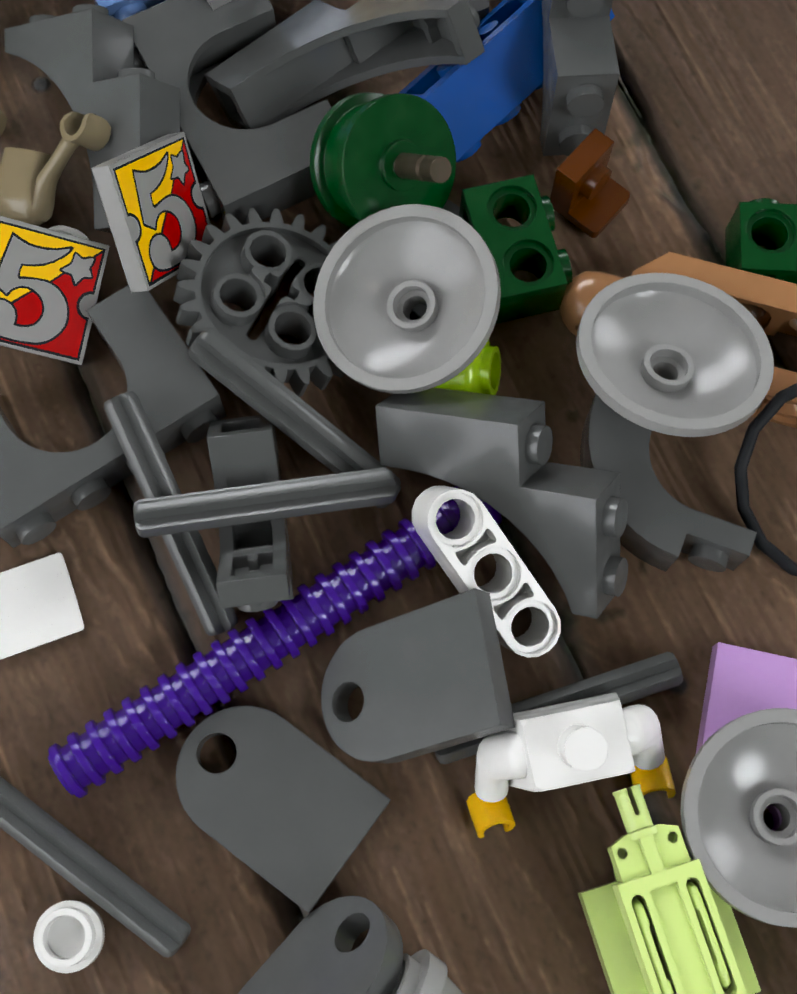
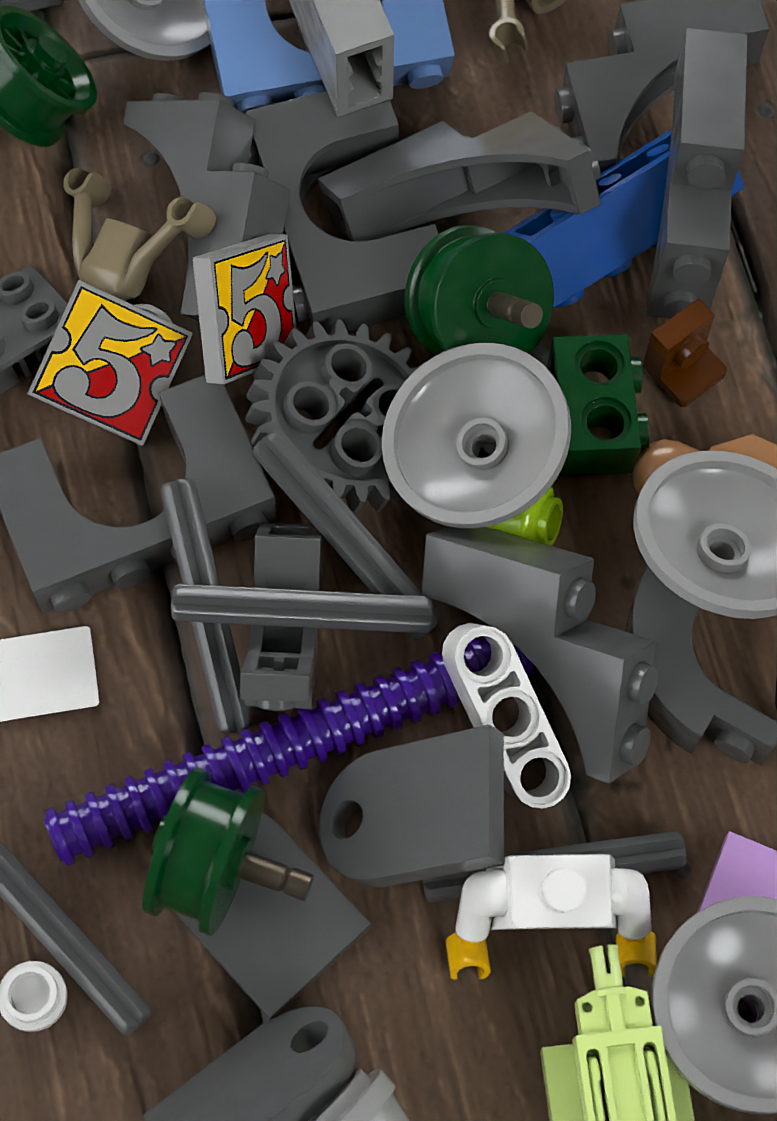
camera: 10 degrees right, 5 degrees down
(215, 766) = (206, 852): none -> dark green wheel

